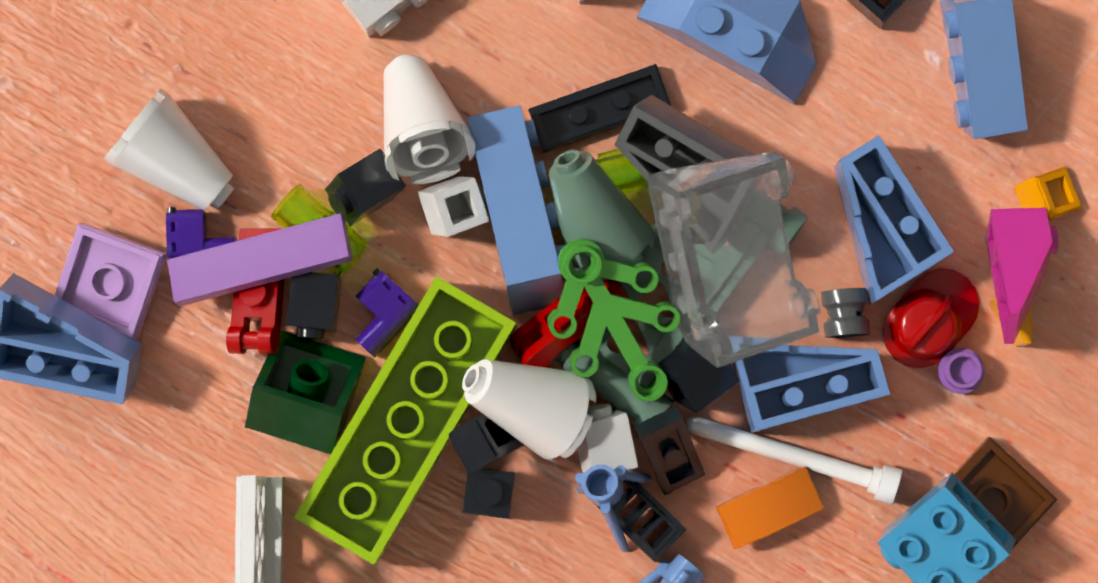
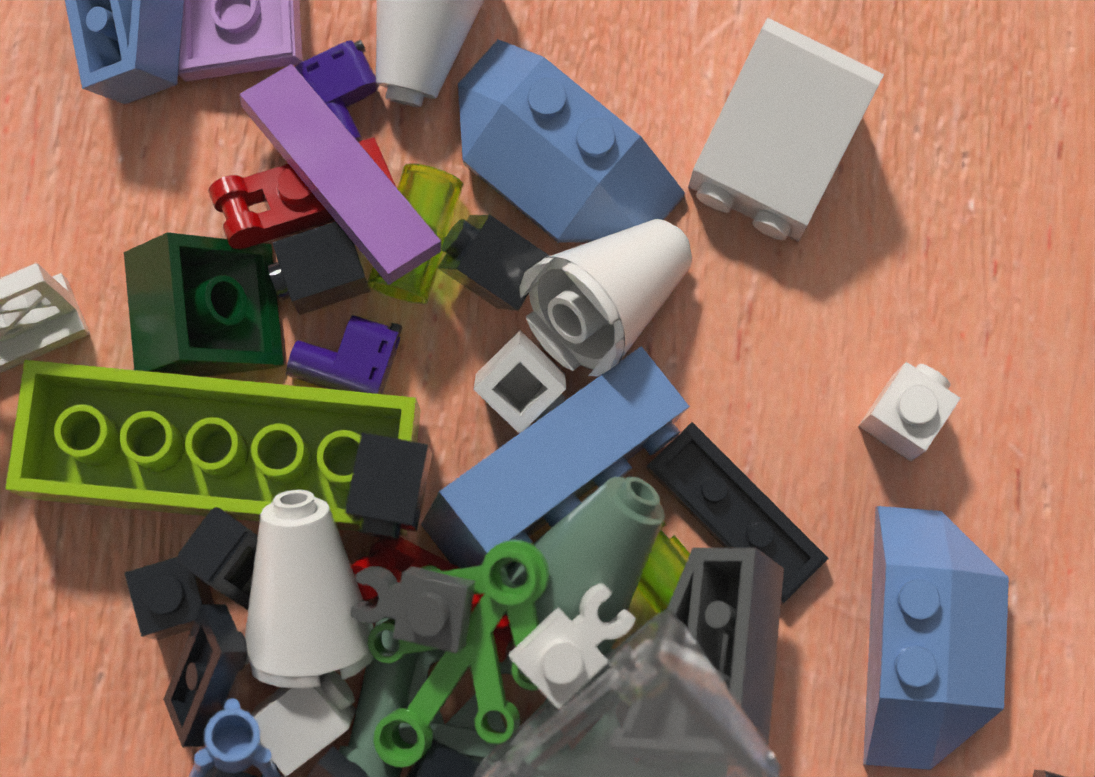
camera: 65 degrees right, 5 degrees down
(305, 112) = (557, 149): none -> medium blue wedge
(488, 316) = (388, 485): none -> black brick
(550, 490) = (205, 673): none -> black plate
(575, 326) = (426, 604): none -> dark grey plate
(643, 253) = (563, 652): none -> white plate

